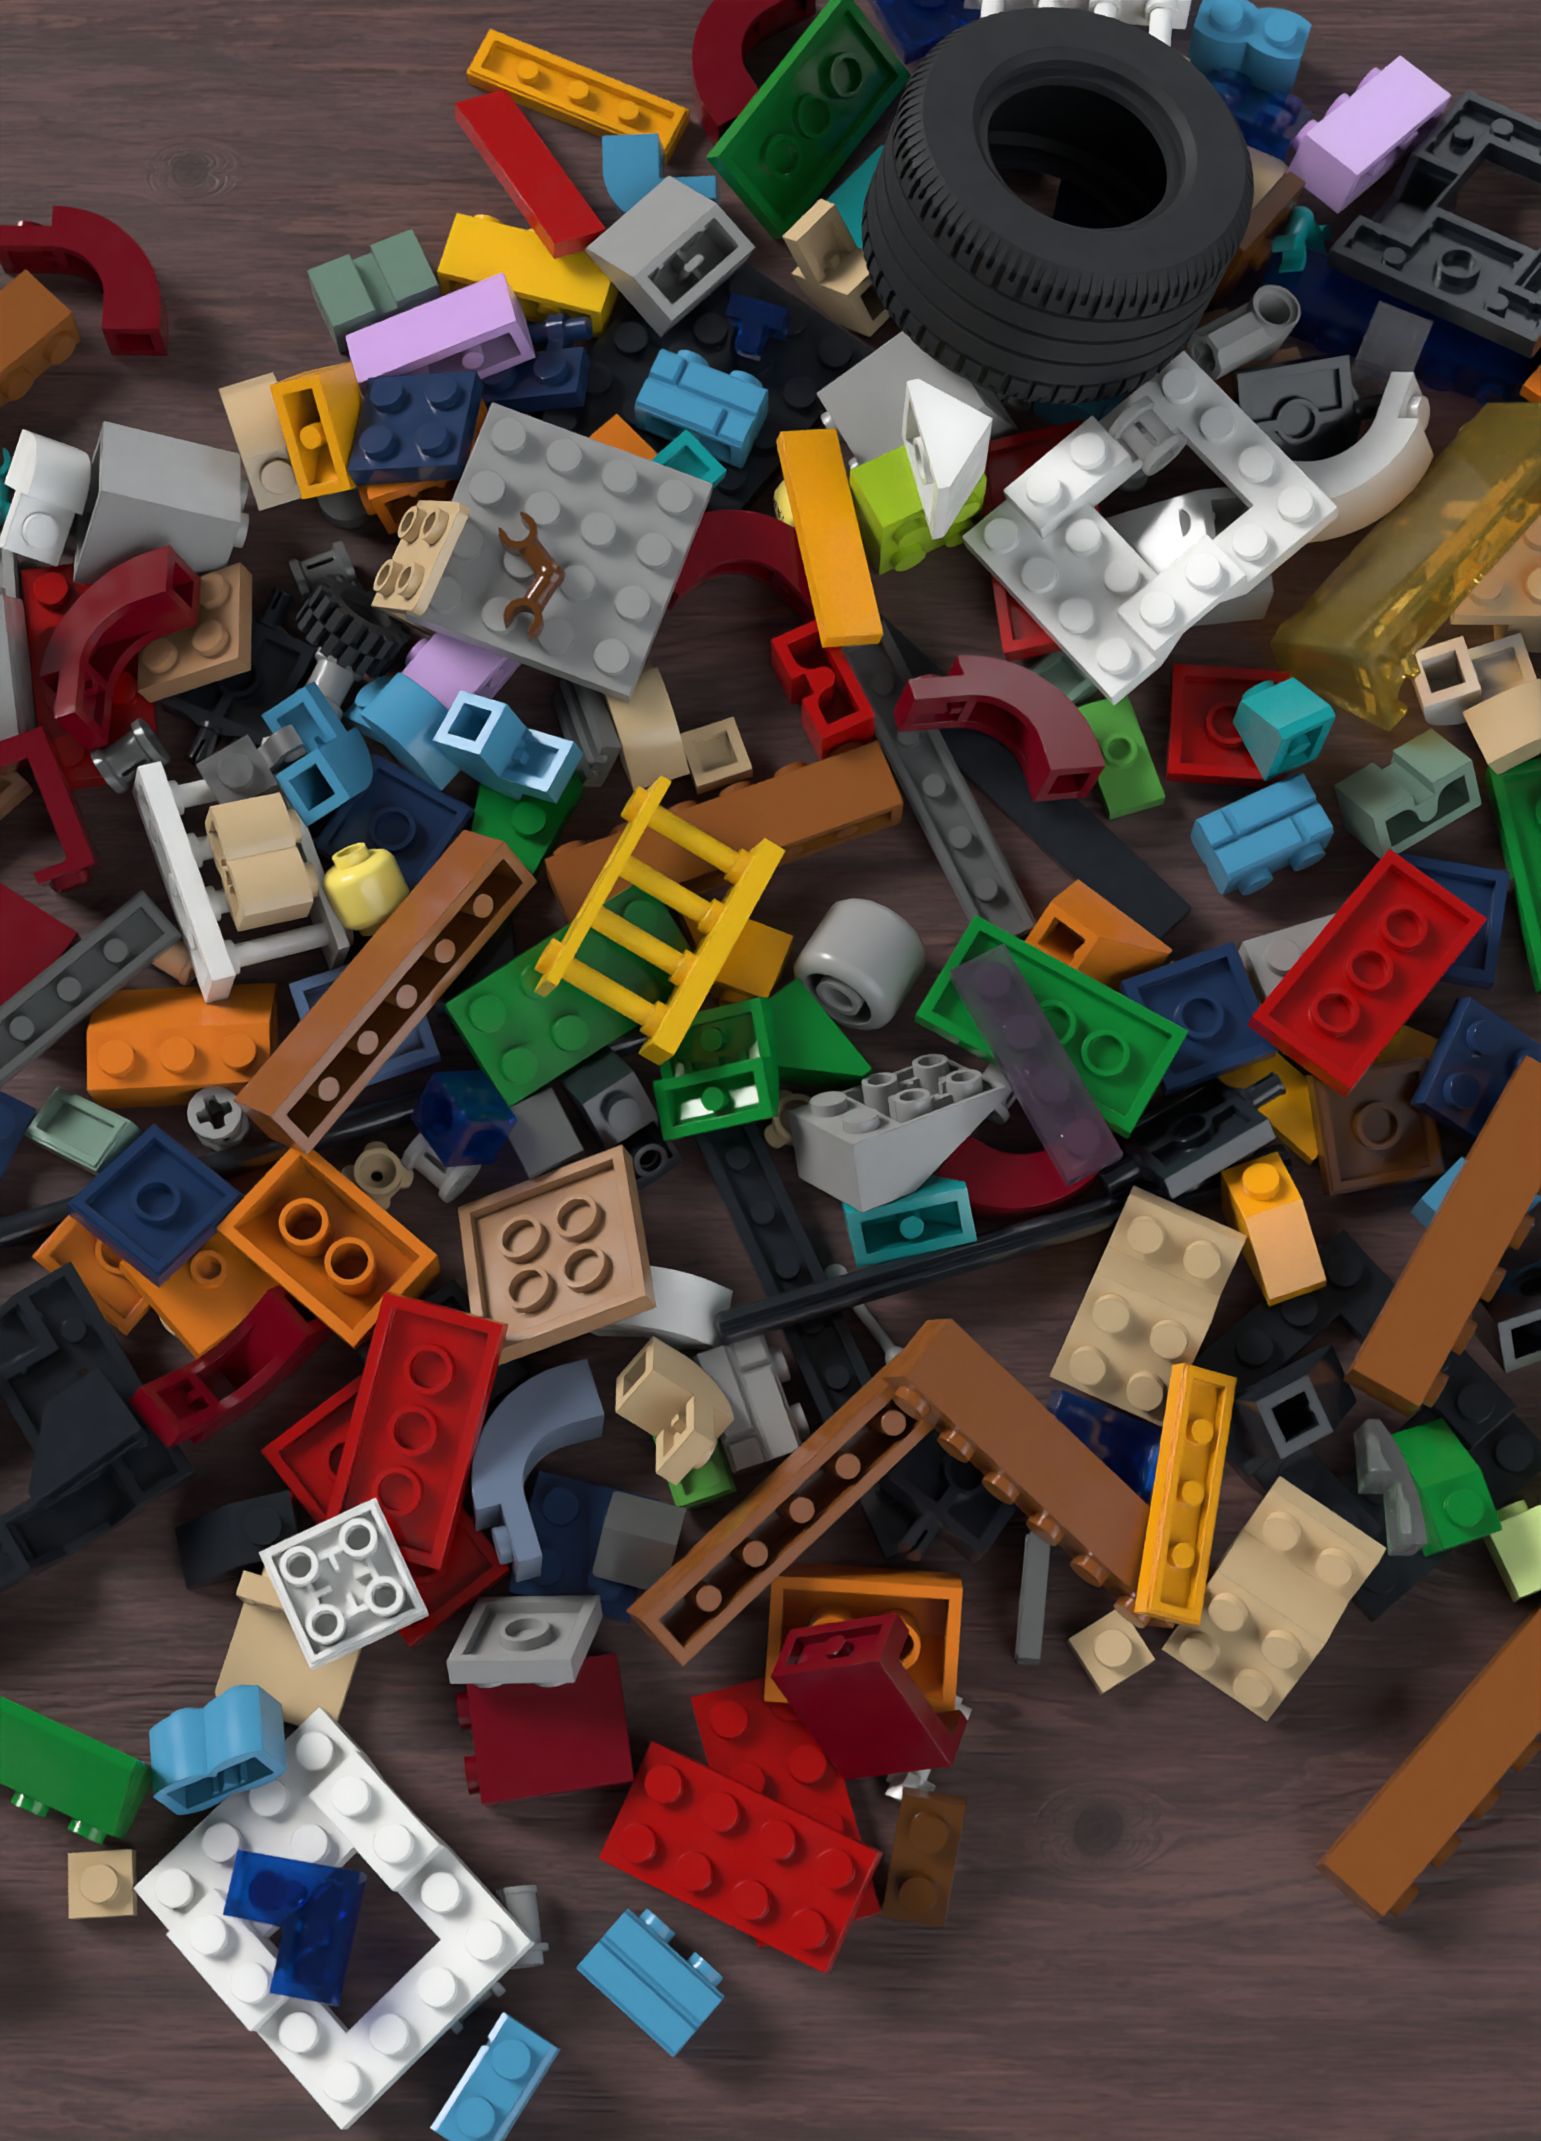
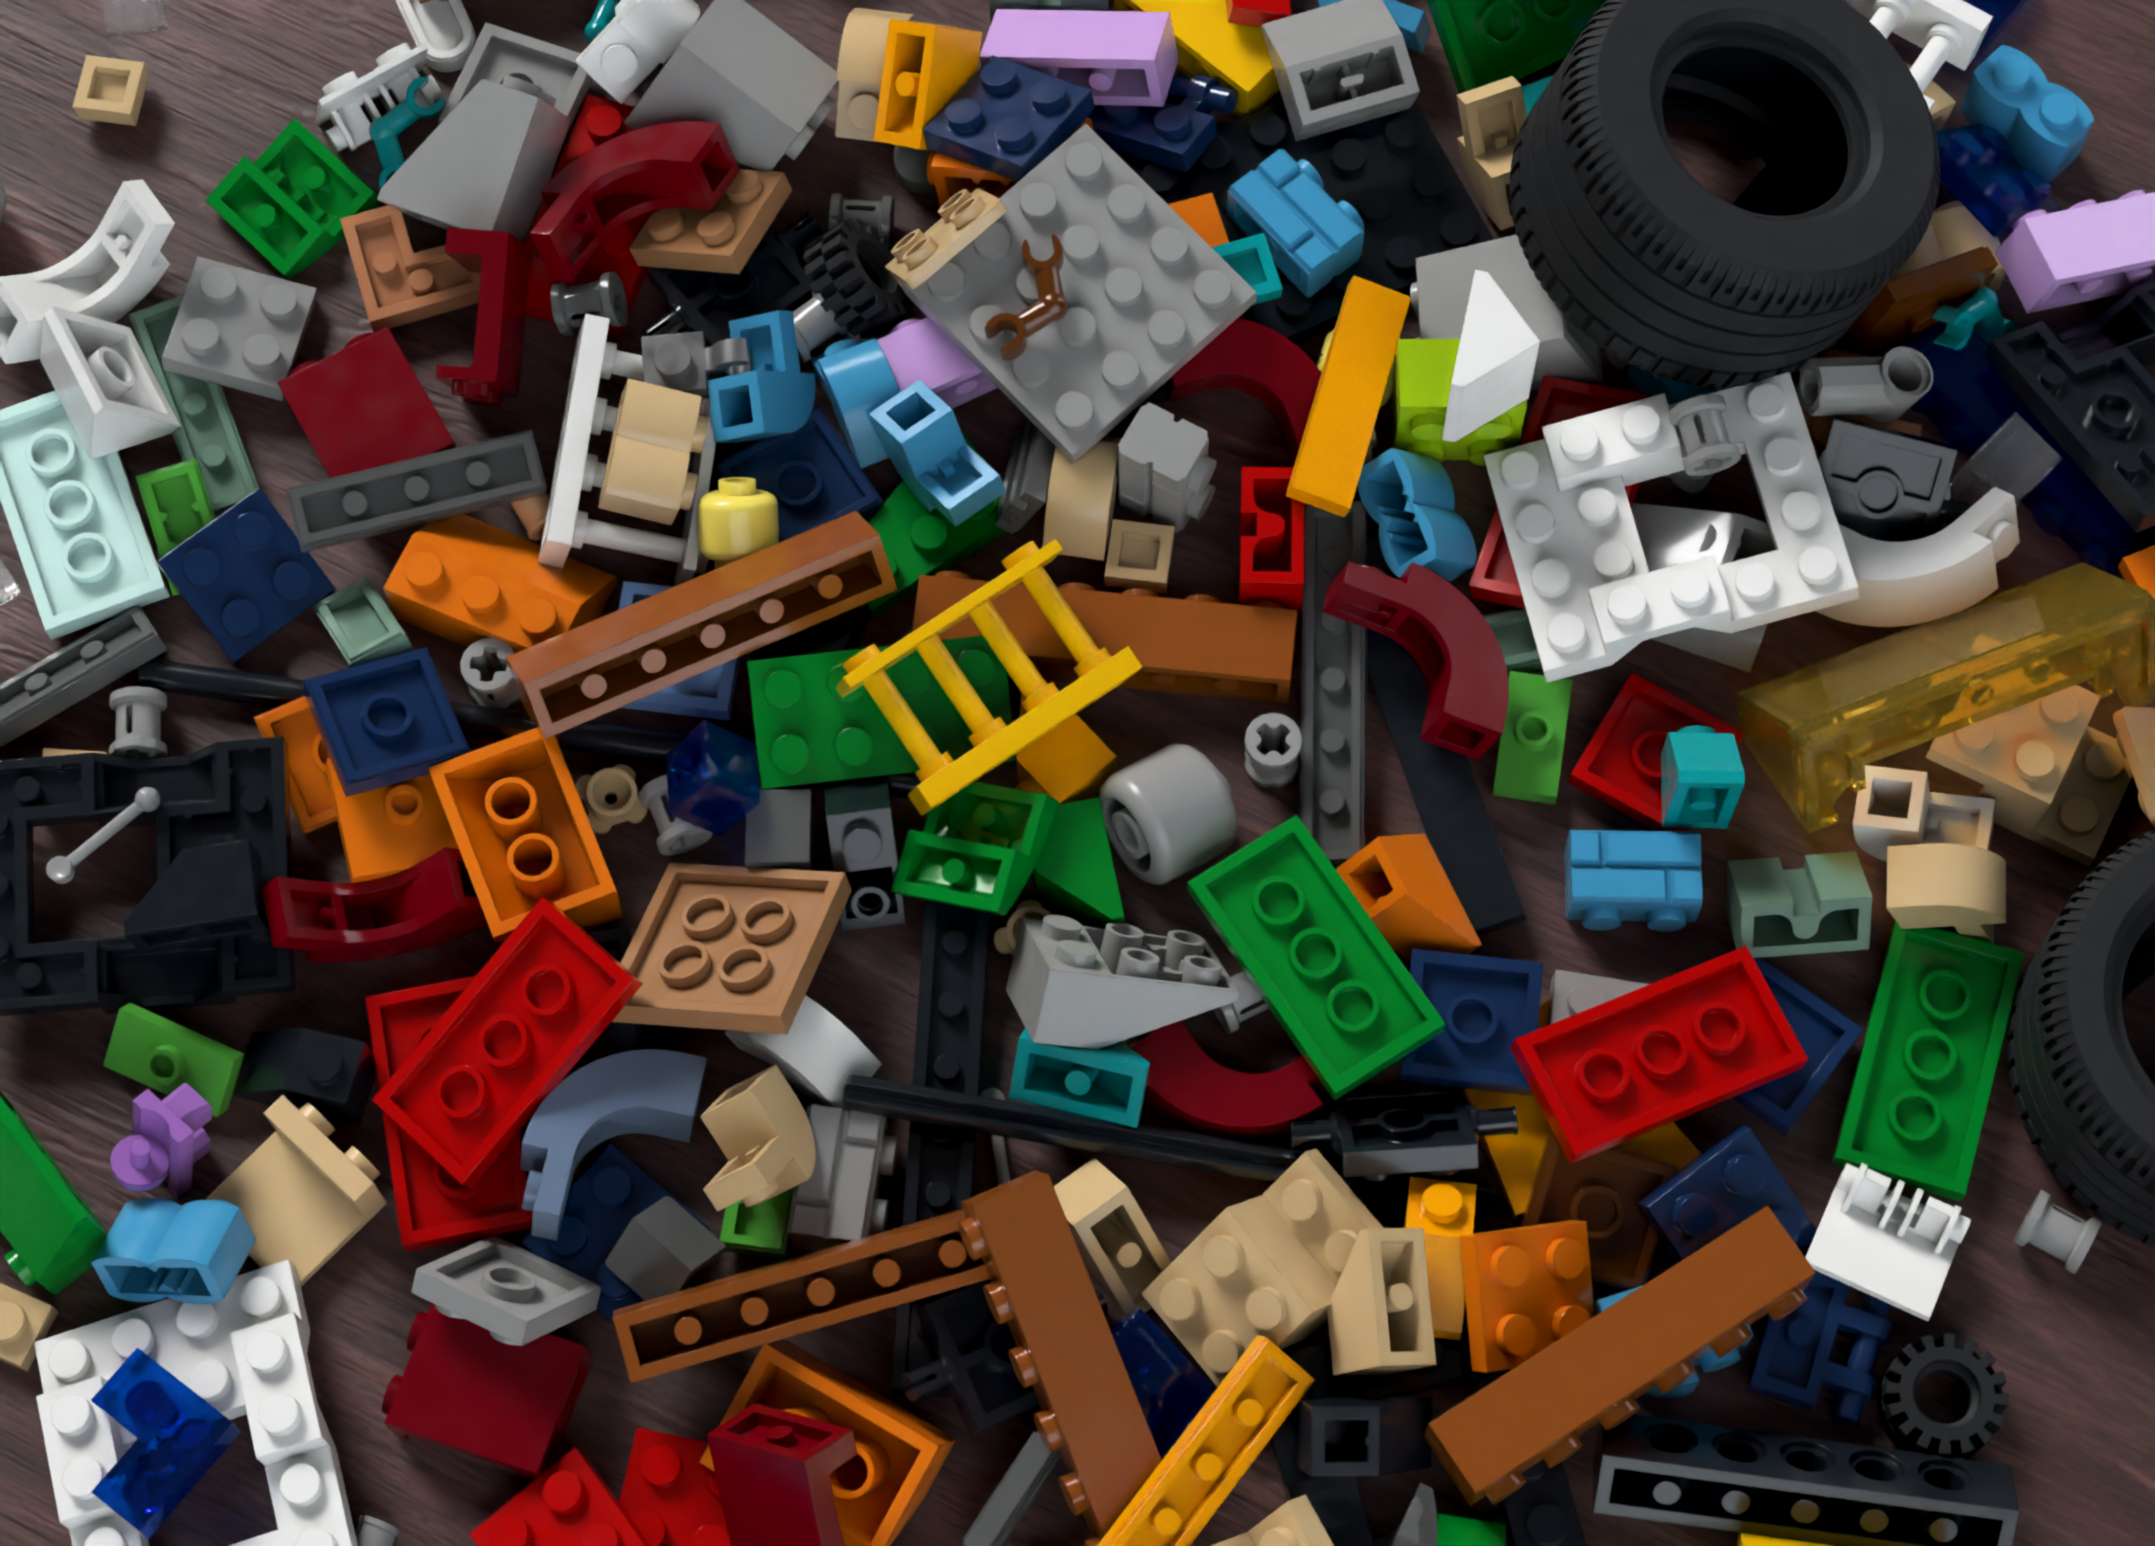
camera: 30 degrees right, 5 degrees down
(120, 1586) = (169, 1054): none -> bright green plate
(156, 1662) = (163, 1142): none -> medium lavender hips
(343, 1584) = (364, 1151): white tile -> none
(705, 670) = (1165, 468): none -> light grey brick
(755, 323) = (1389, 168): clear blue tile -> none
(902, 855) = (1271, 732): none -> light grey bush
(925, 606) = (1416, 514): none -> dark azure brick
(1005, 1334) = (1112, 1234): none -> tan slope
(1035, 1065) = (1275, 984): clear purple plate -> none
(1260, 1291) = (1382, 1306): none -> tan slope
(1363, 1221) = (1524, 1290): none -> orange plate

